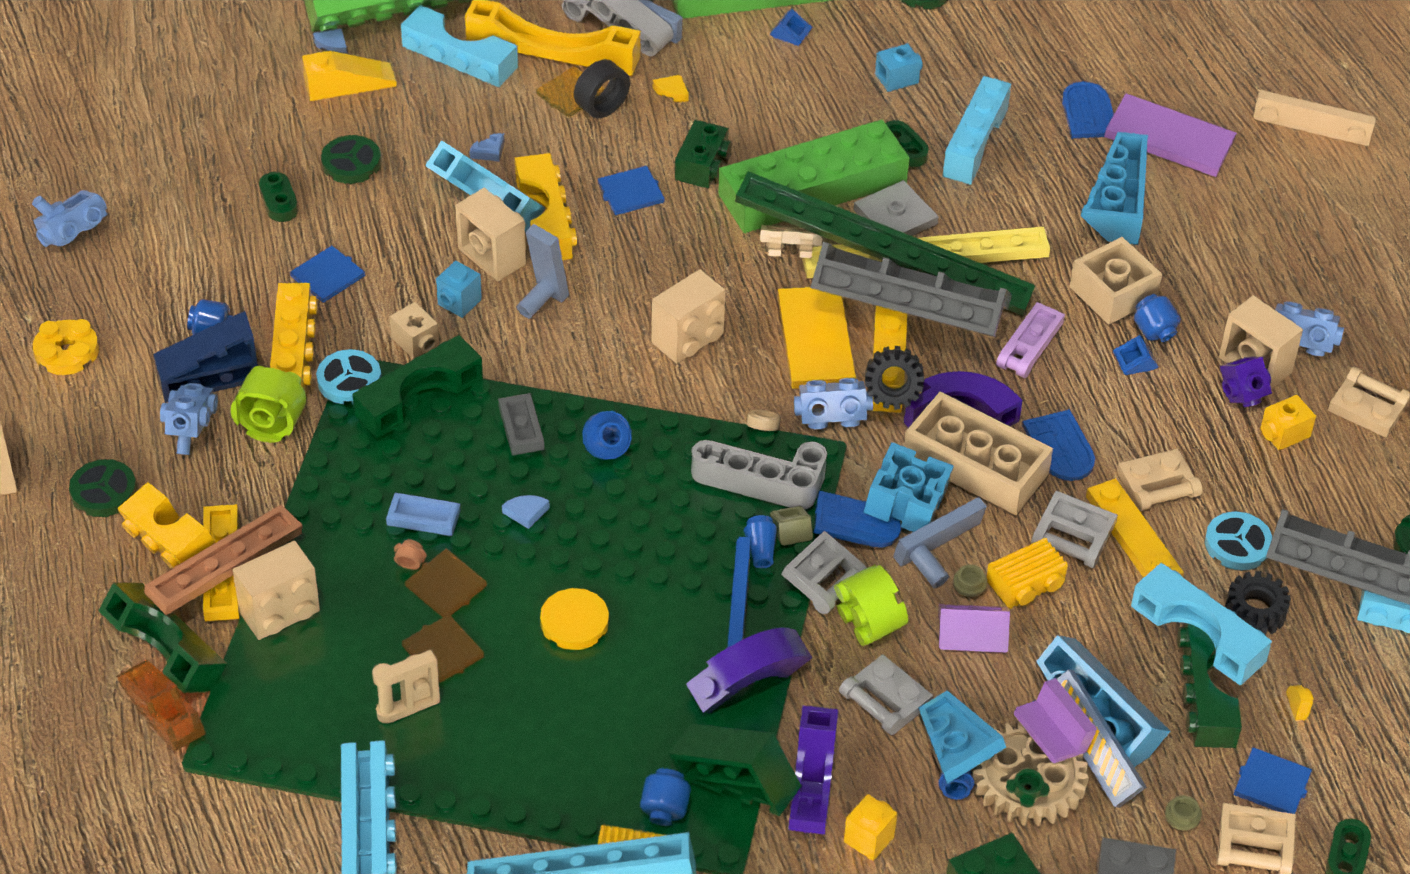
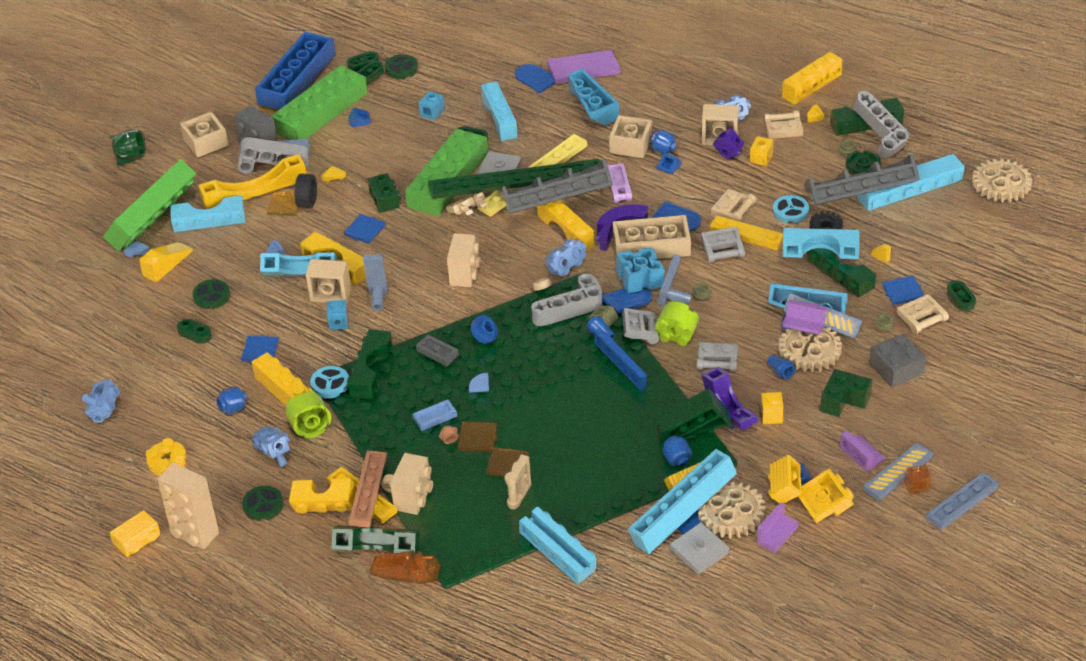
camera: 35 degrees left, 5 degrees down
(214, 357) = (256, 411): dark blue wedge -> none
(414, 336) = (336, 345): tan brick -> none
(574, 618) = (552, 412): yellow tile -> none
(756, 657) = (654, 380): dark purple arch -> none
(815, 336) = (522, 238): yellow tile -> none
(891, 396) = (599, 226): black tyre -> none
(958, 735) = (771, 350): dark azure wing -> none
(973, 628) = (724, 308): panel -> none
(1027, 573) = (723, 273): yellow brick -> none
(1031, 779) = (821, 348): dark green plate -> none
(1314, 117) = (638, 24): tan plate -> none

